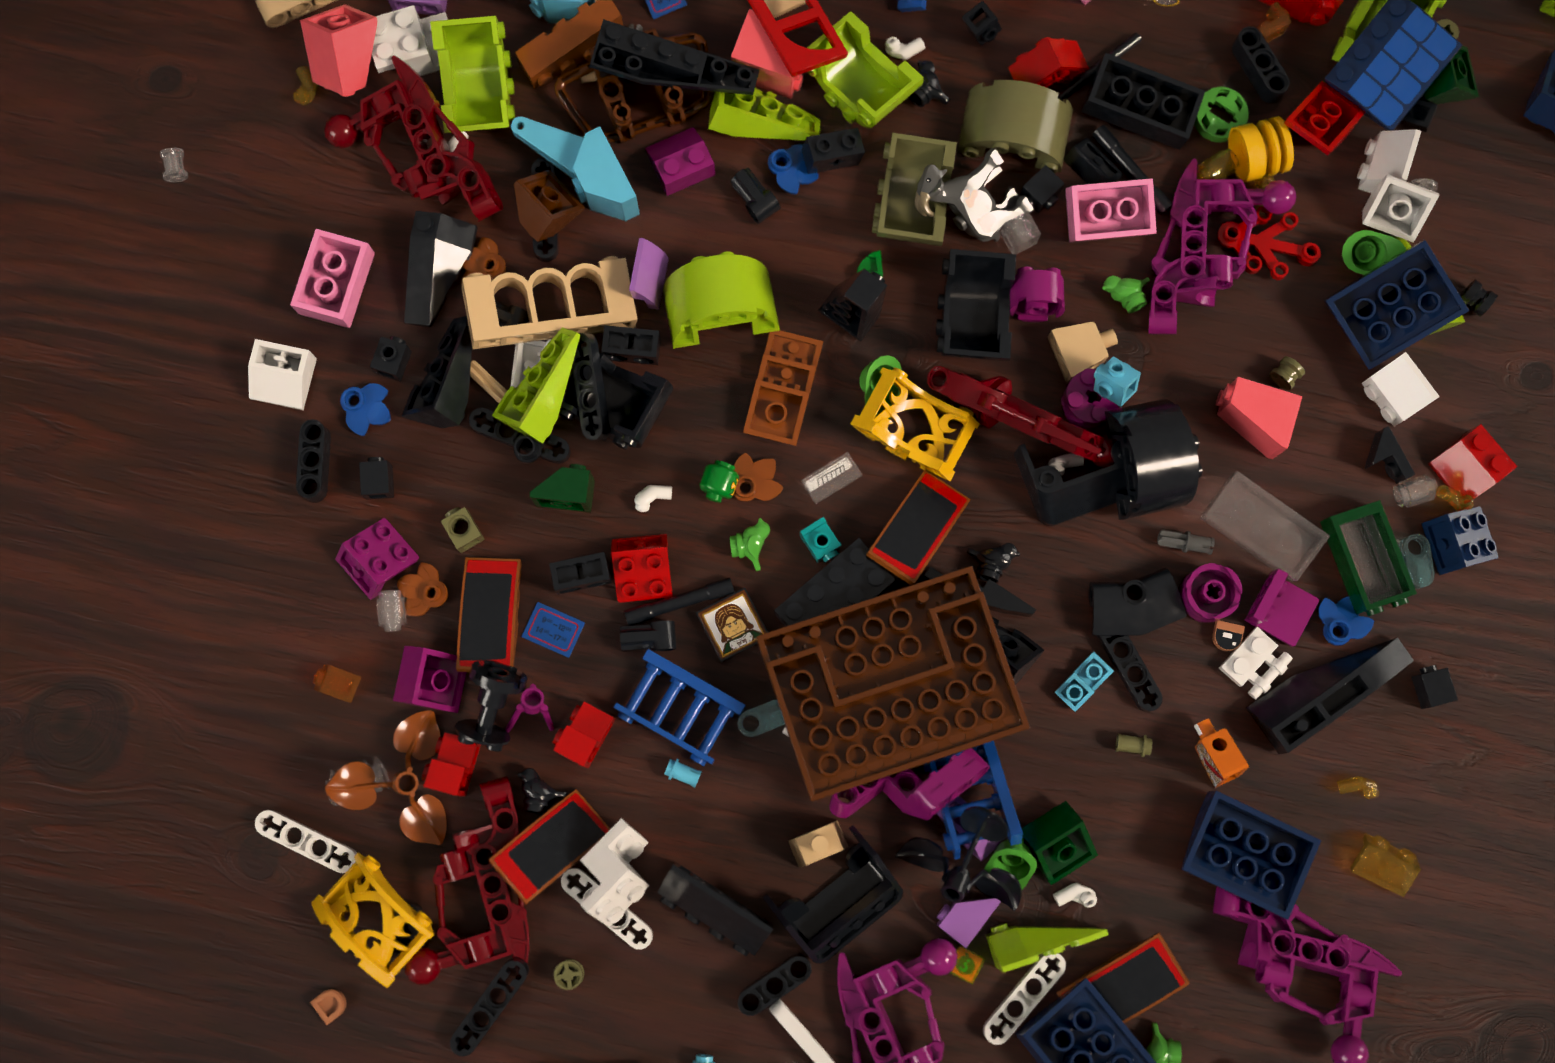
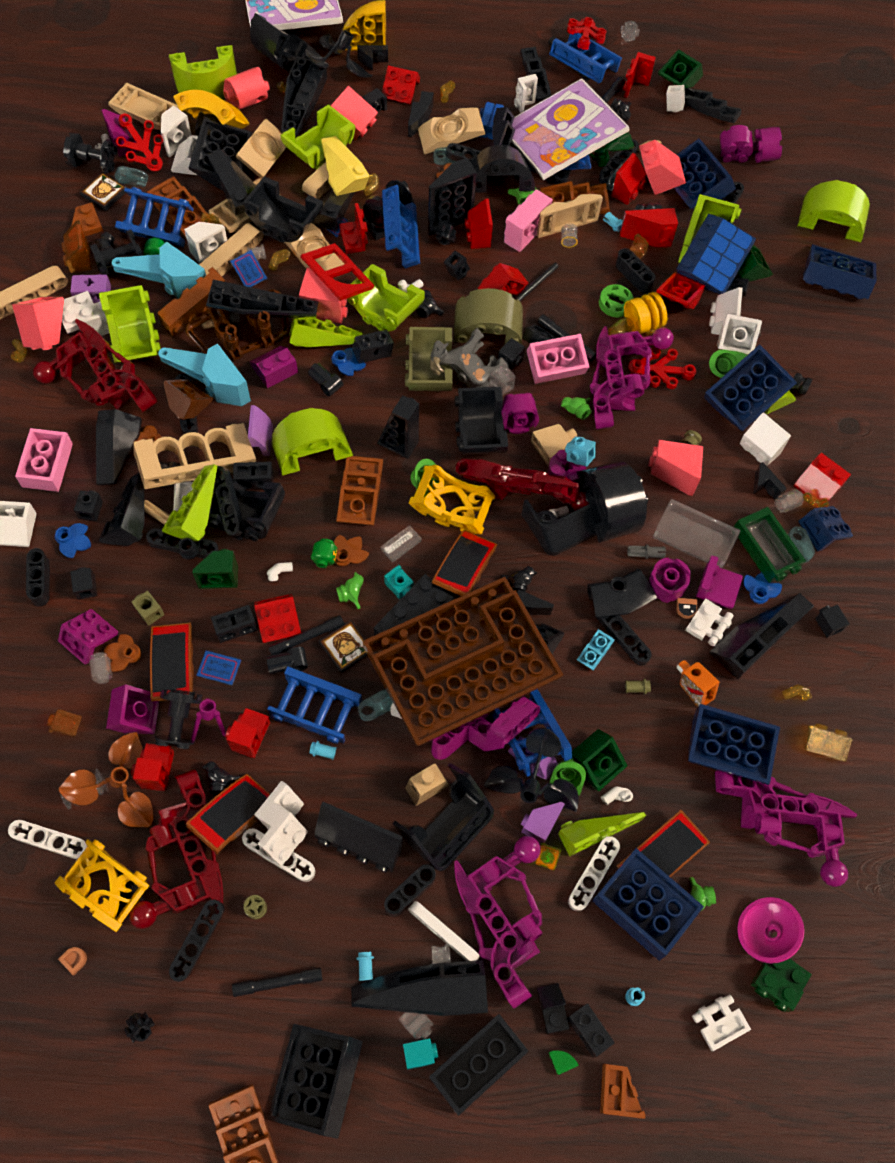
camera: 10 degrees left, 15 degrees down
(1143, 101) = (566, 296): black brick -> none

